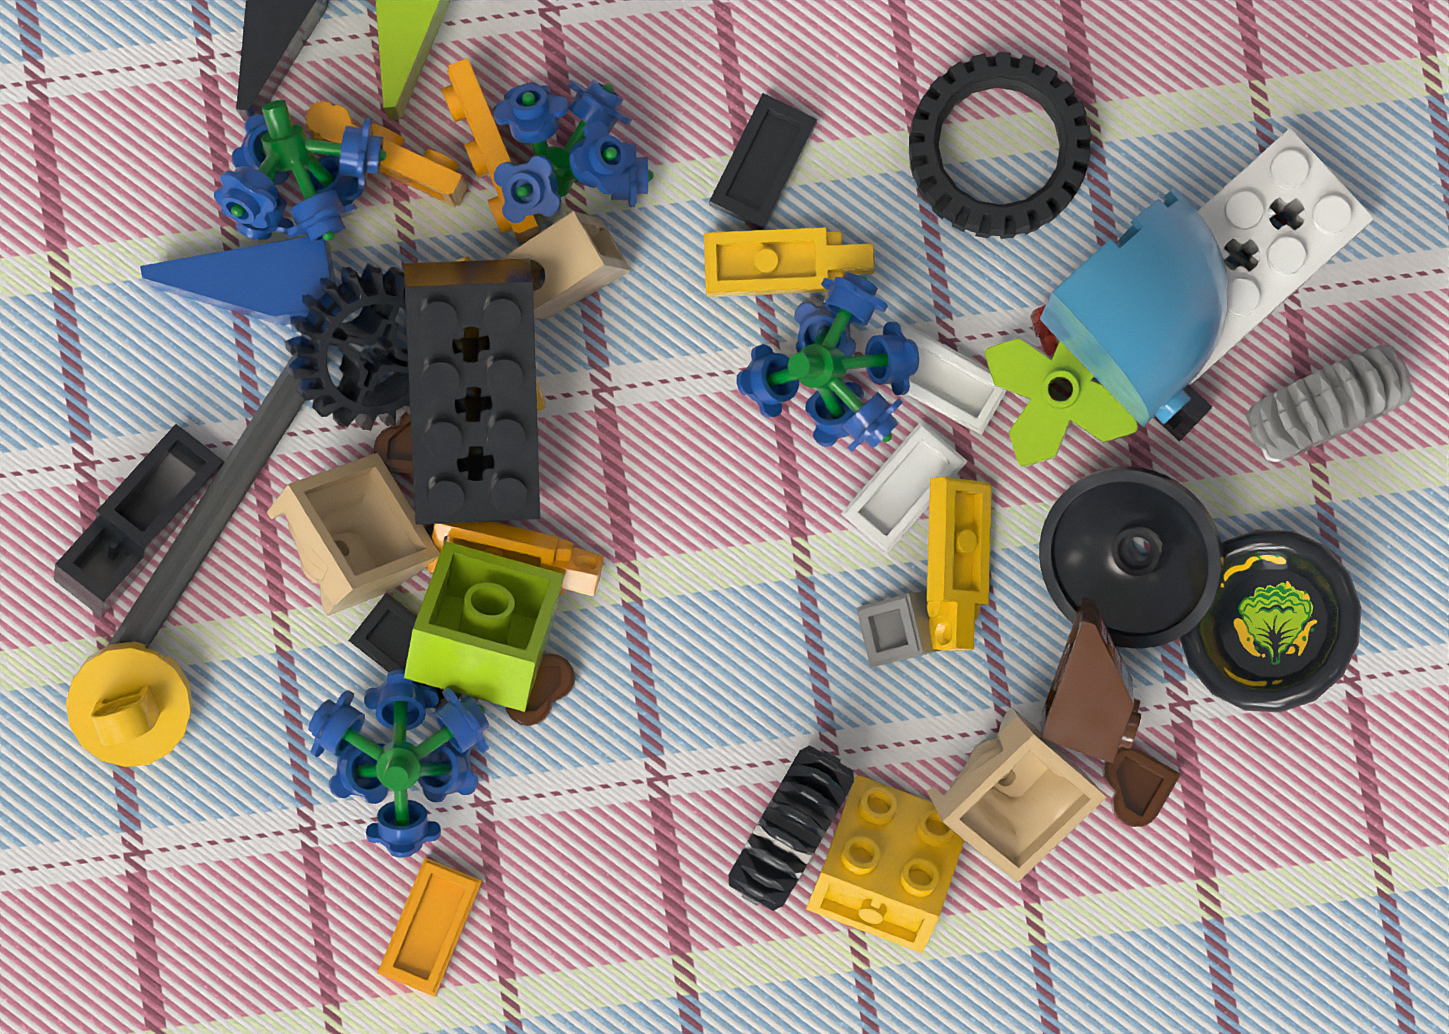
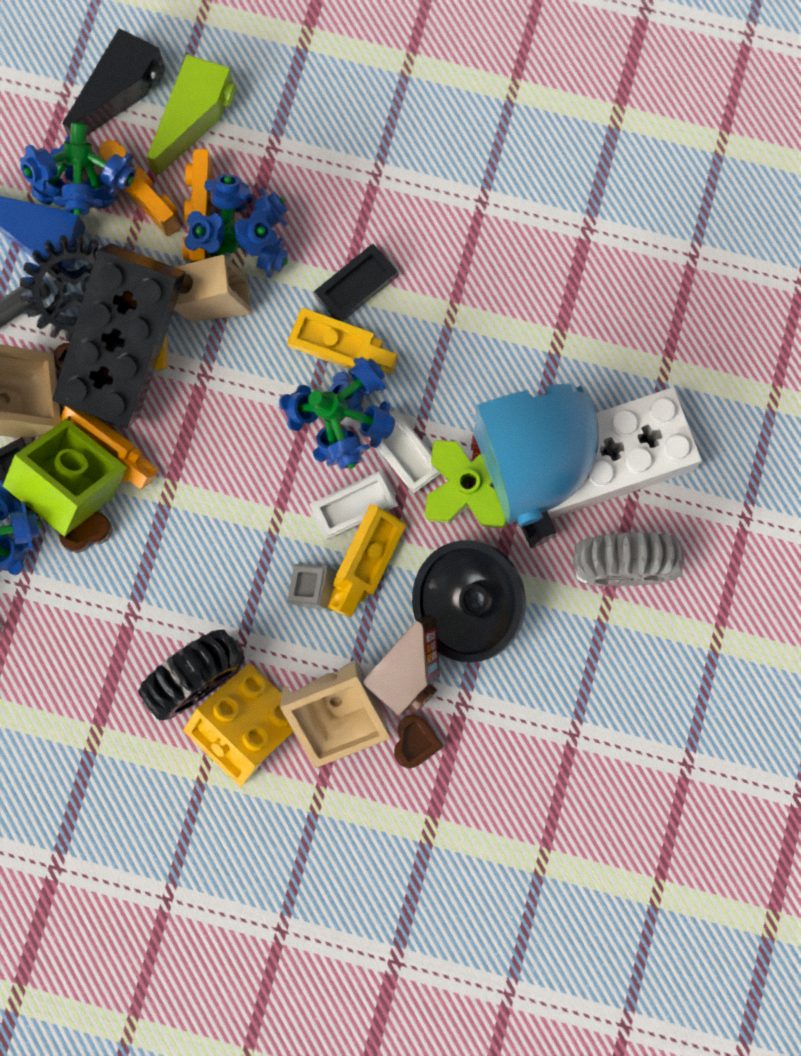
camera: 20 degrees right, 5 degrees down
(1010, 74) = (503, 285): black tyre -> none
(1277, 625) = (539, 678): black piece -> none

